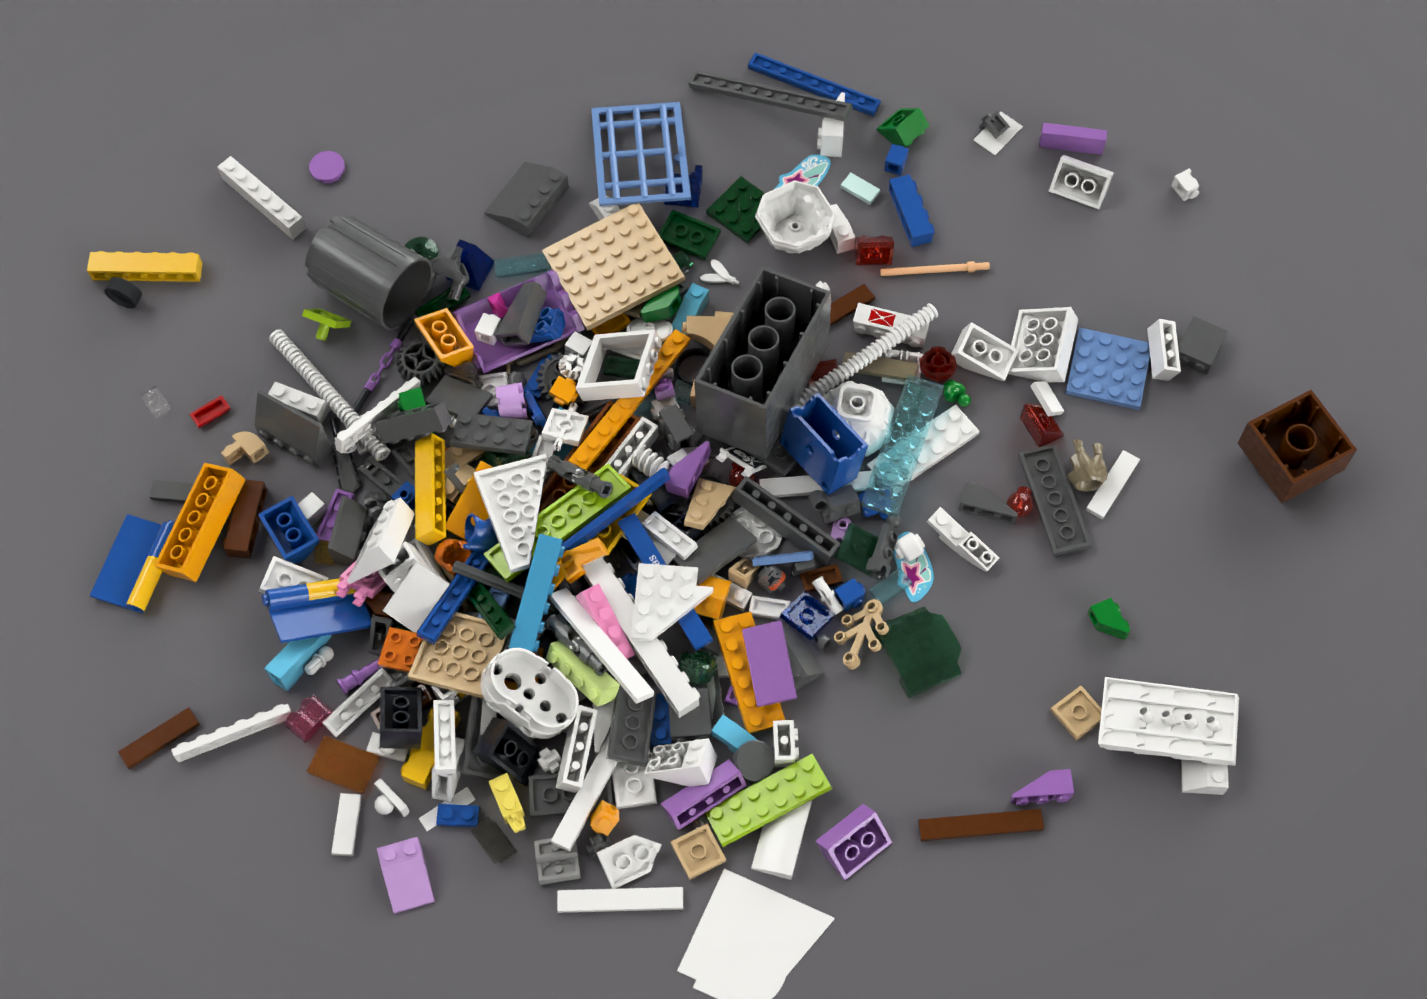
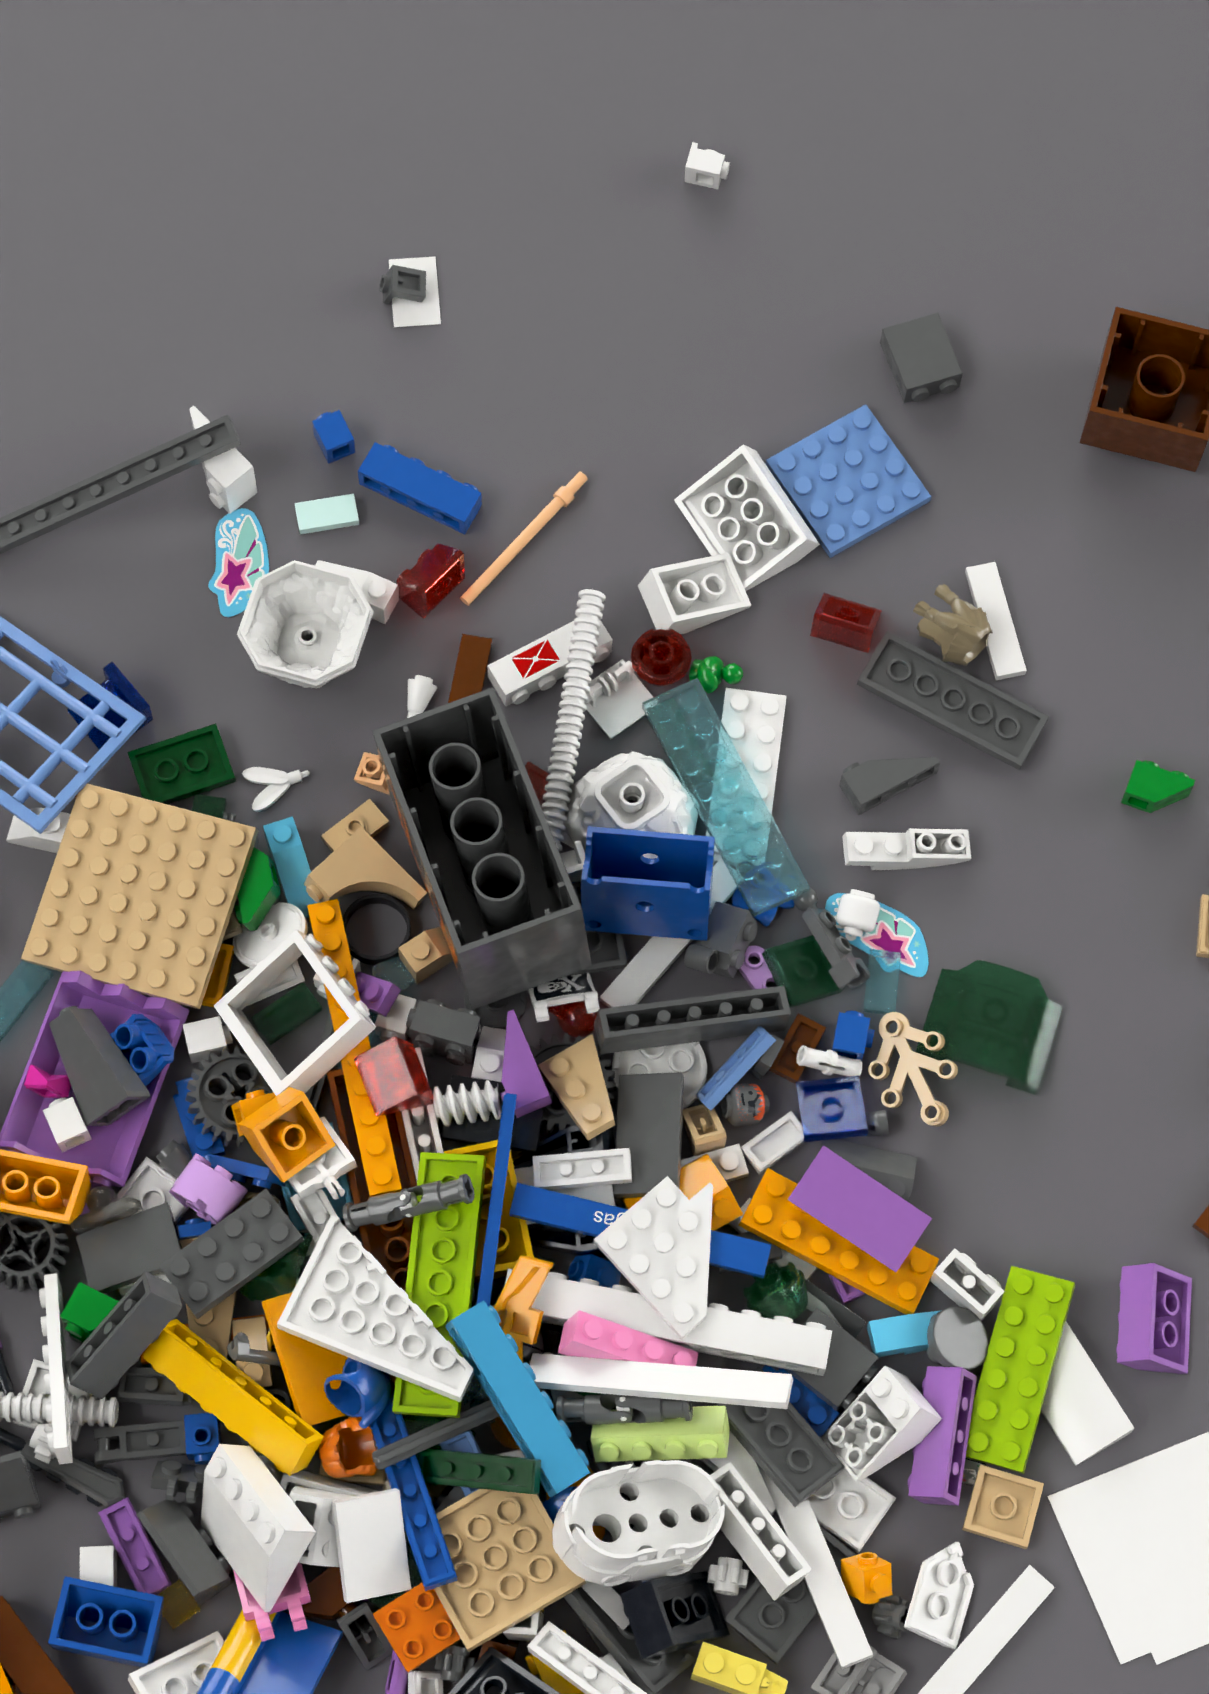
camera: 50 degrees left, 5 degrees up
(536, 356) = (160, 1104): dark tan piece -> none
(562, 405) = (287, 1133): none -> light orange slope
(566, 363) = (229, 1082): white gear -> none
(631, 424) = (393, 1077): none -> clear red slope
(738, 209) = (209, 673): dark green plate -> none
(813, 83) = (121, 425): blue tile -> none
(887, 368) = (600, 717): dark tan tile -> none
(904, 126) = (296, 384): green slope -> none
(1021, 501) = (921, 738): clear red piece -> none
(1047, 398) = (820, 583): white tile -> none
(1072, 138) = (516, 221): medium lavender piece -> none
(1081, 181) = (581, 269): white slope -> none
(1163, 350) = (890, 401): white brick -> none

